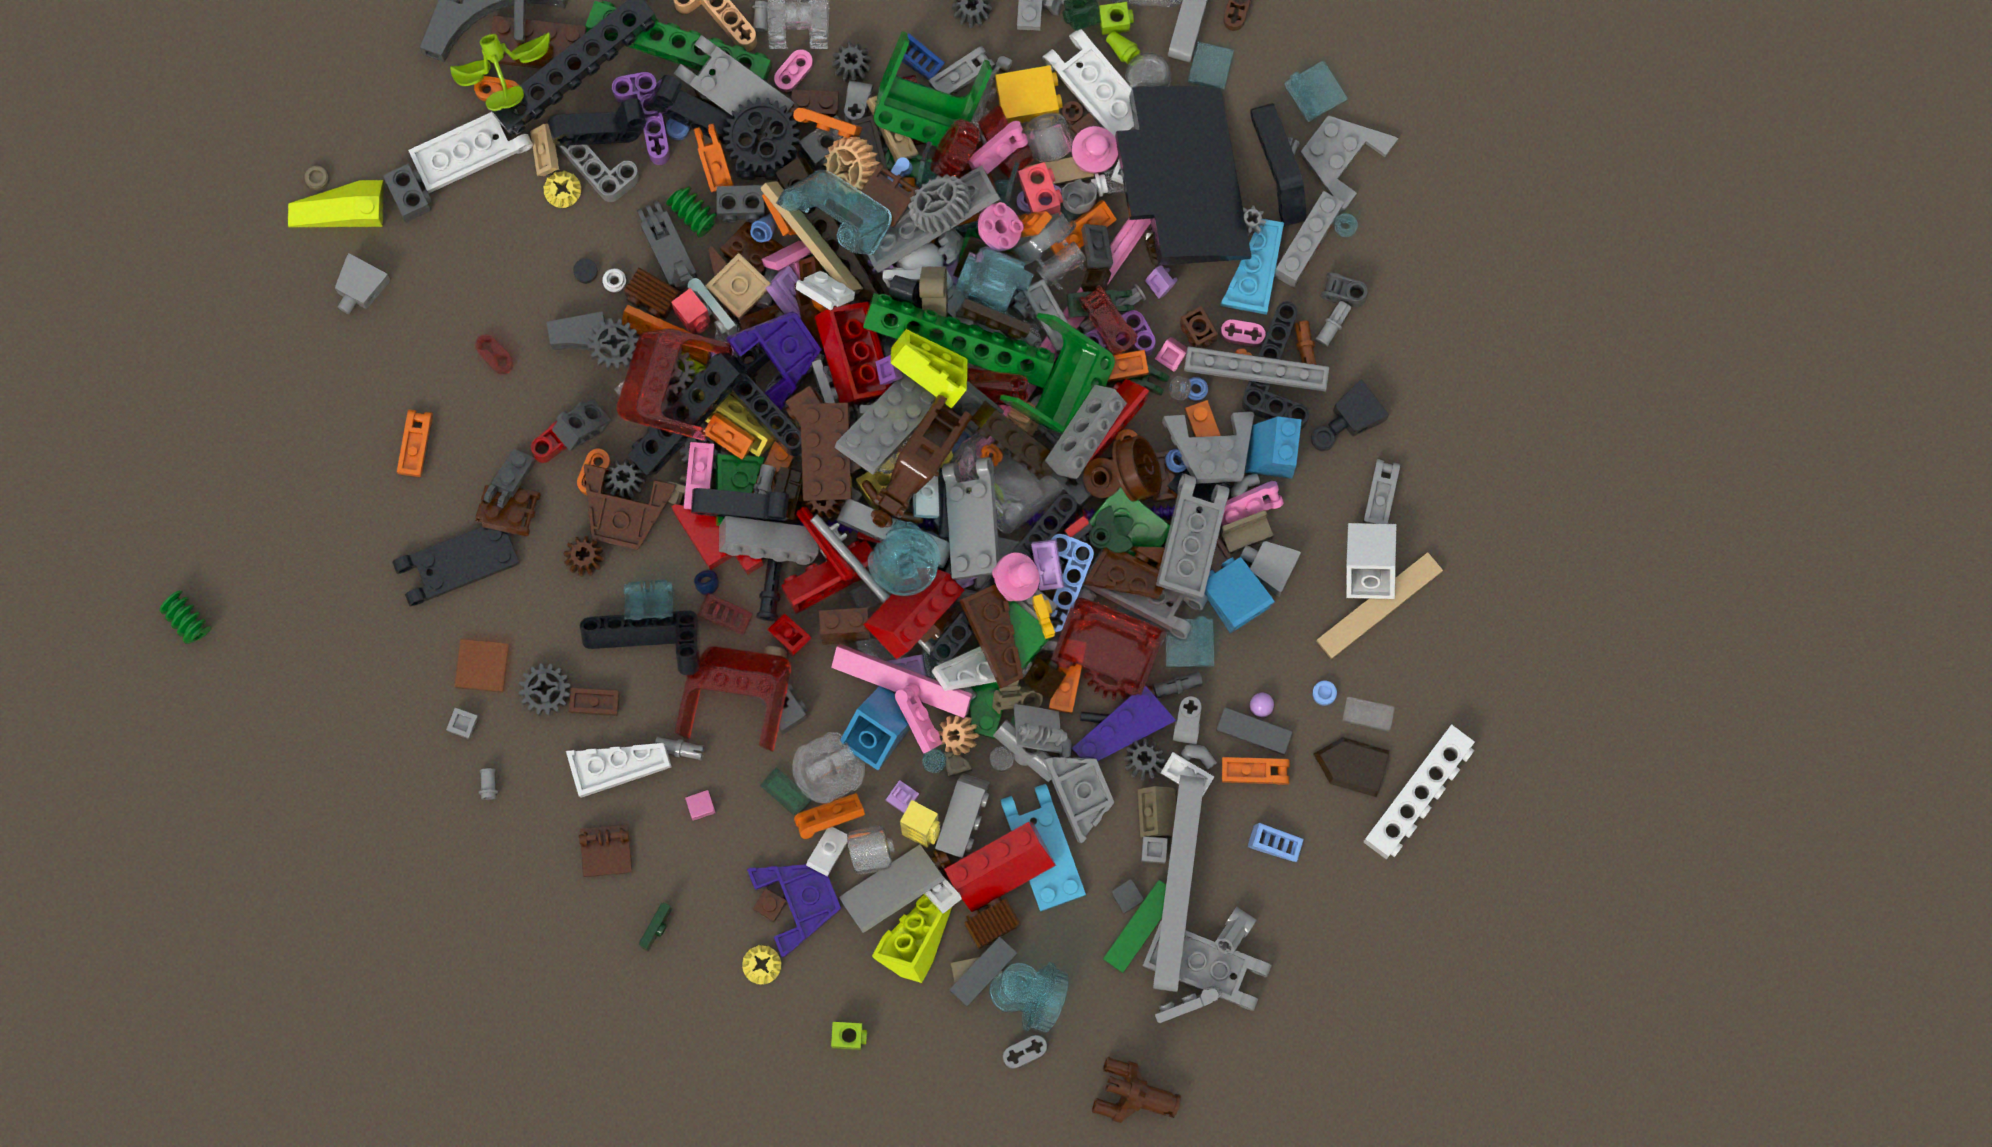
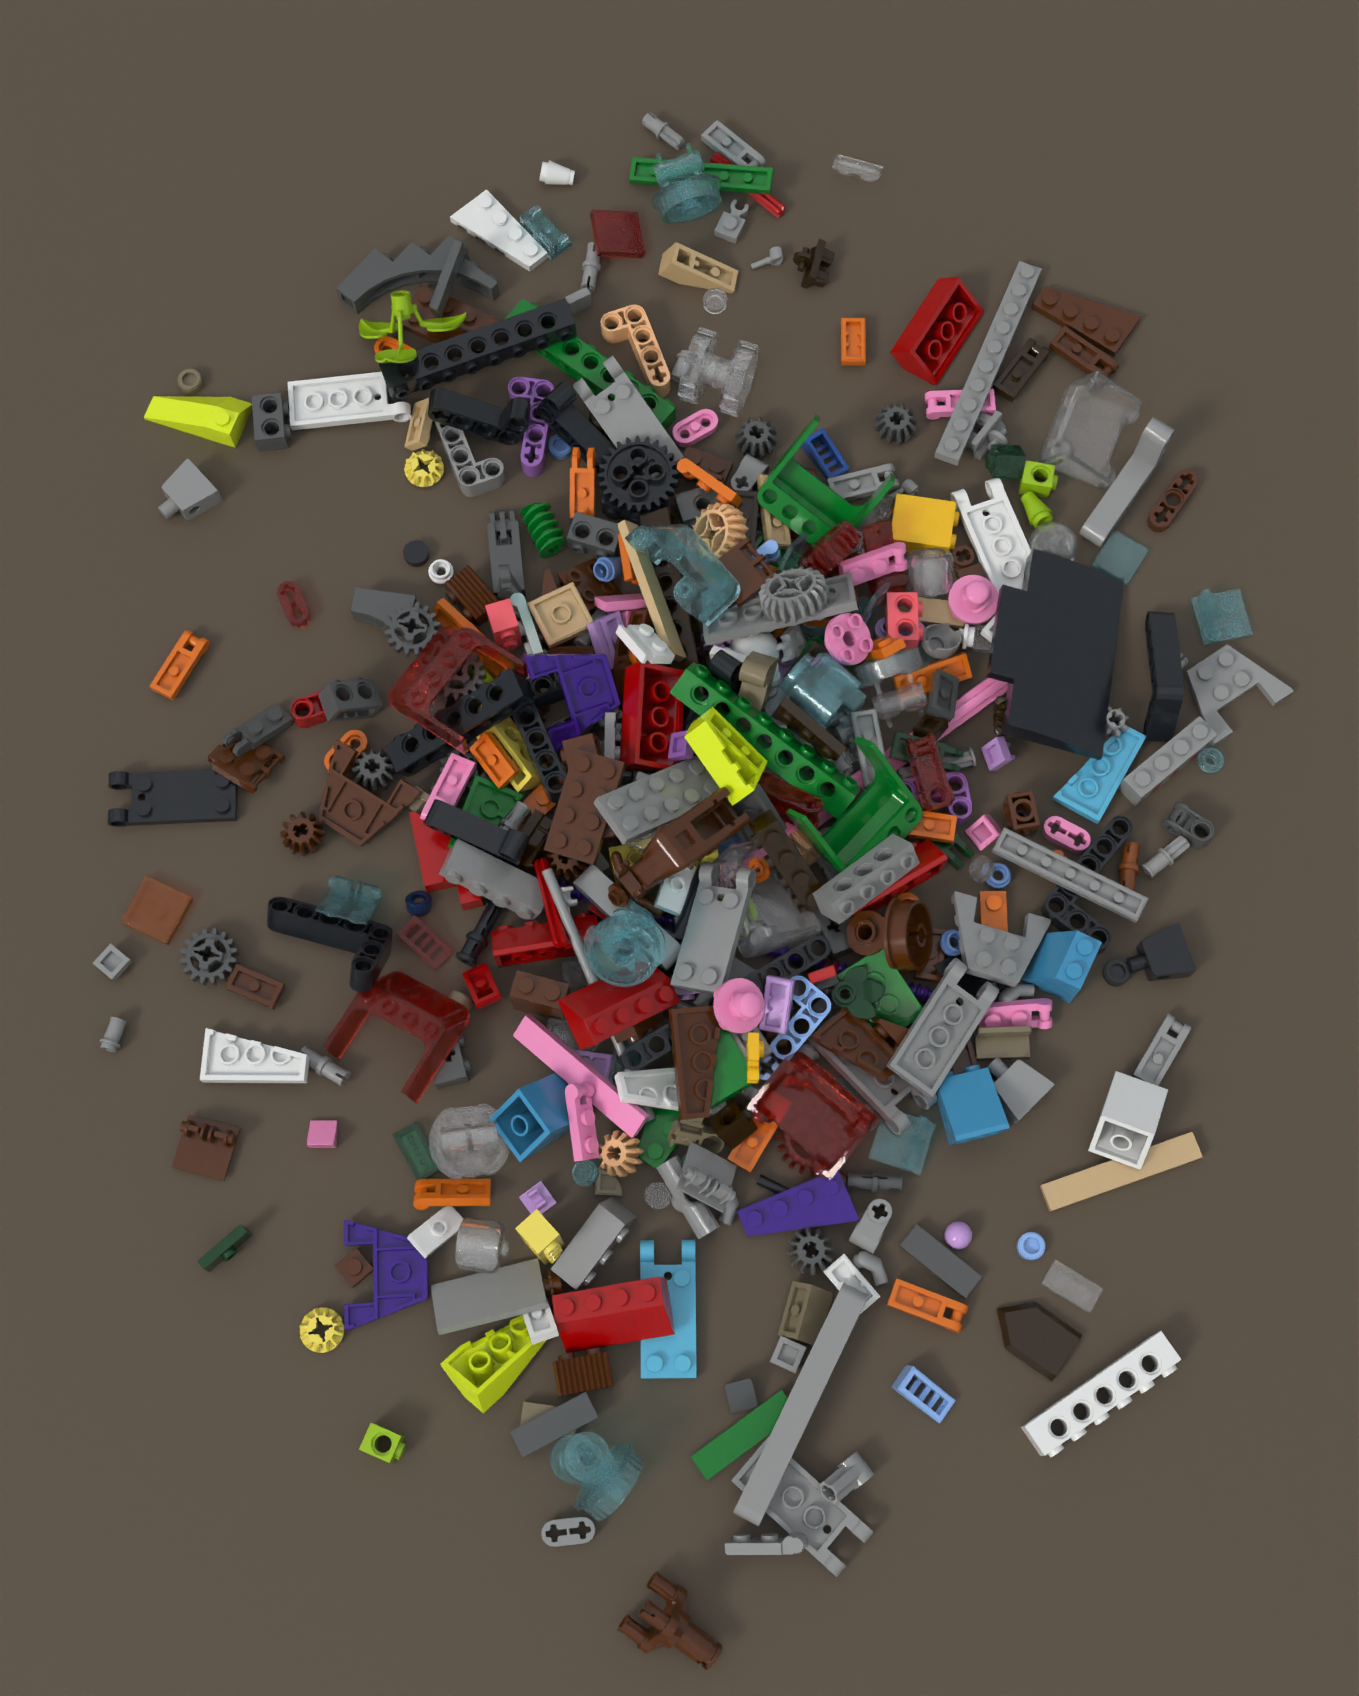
camera: 20 degrees right, 5 degrees down
(1081, 791) = (729, 1261): light grey wing -> none

